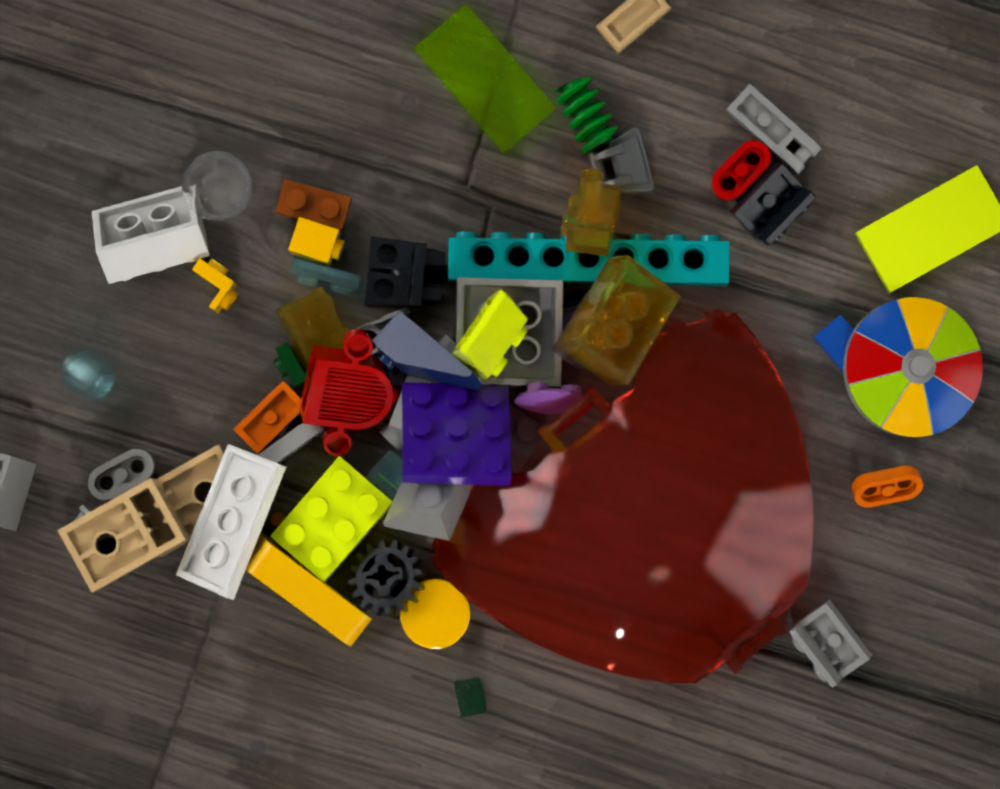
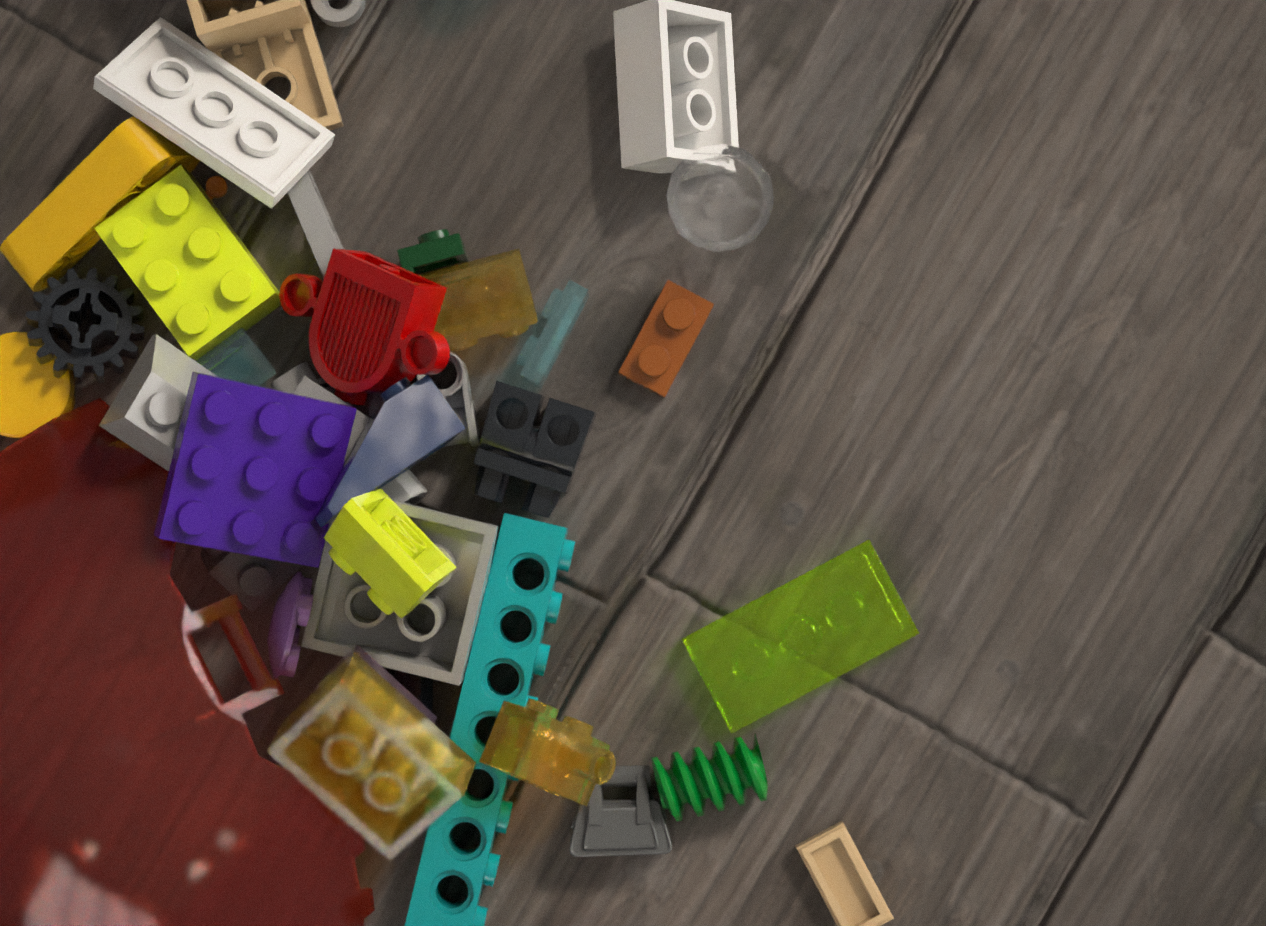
camera: 100 degrees right, 0 degrees up
(215, 274) = (592, 171): yellow bracket -> none
(269, 417) = (363, 206): orange plate -> none
(316, 242) = (607, 330): yellow brick -> none

